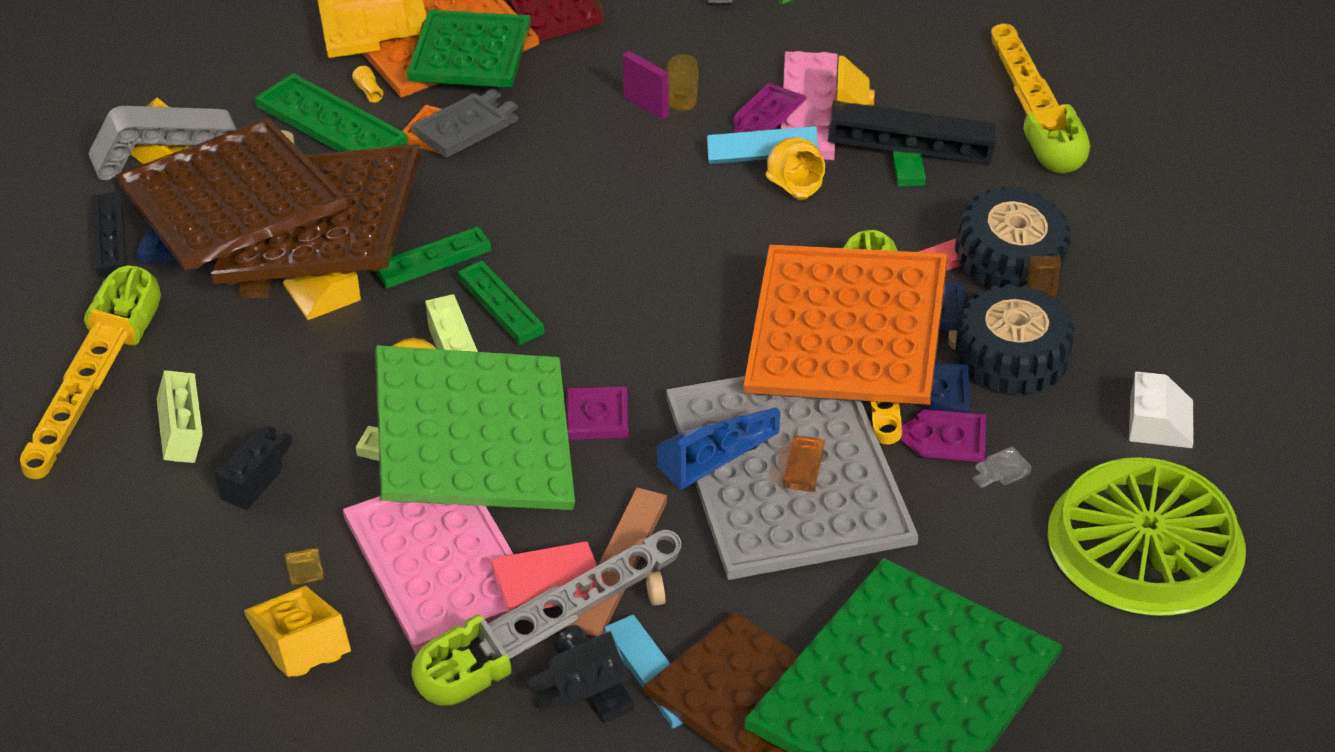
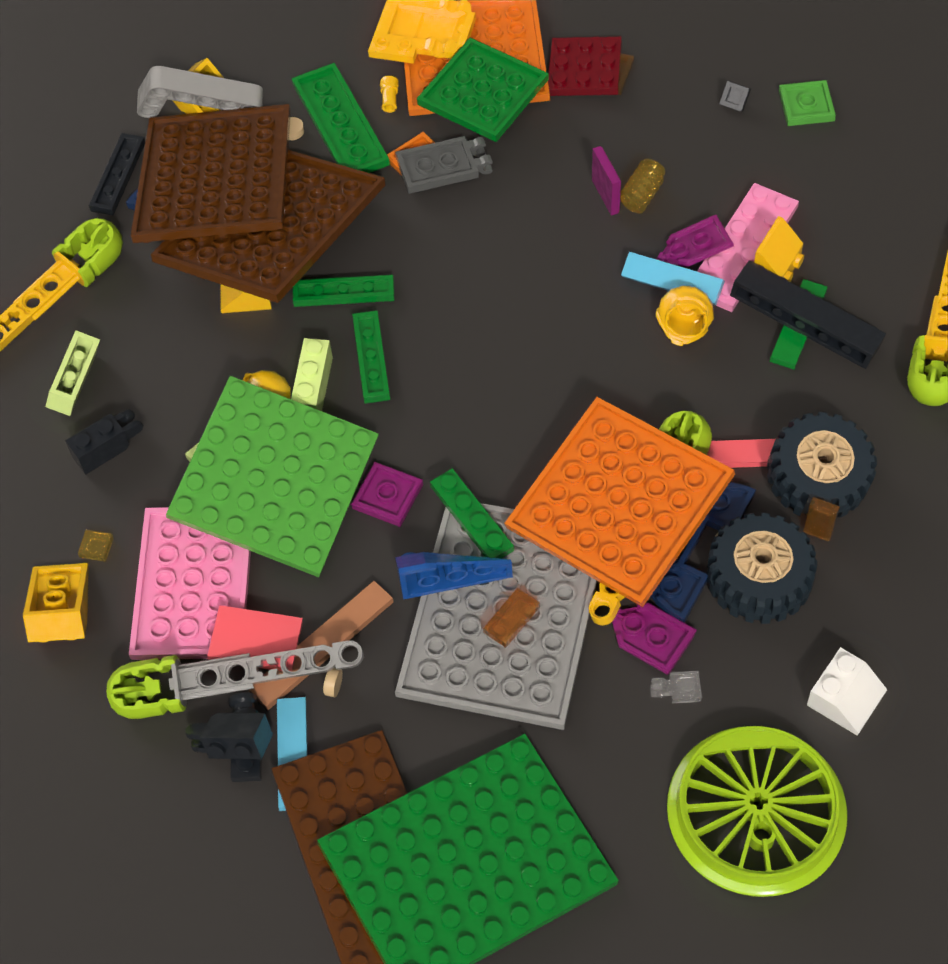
camera: 30 degrees right, 15 degrees up
(699, 392) = (471, 515): none -> green plate

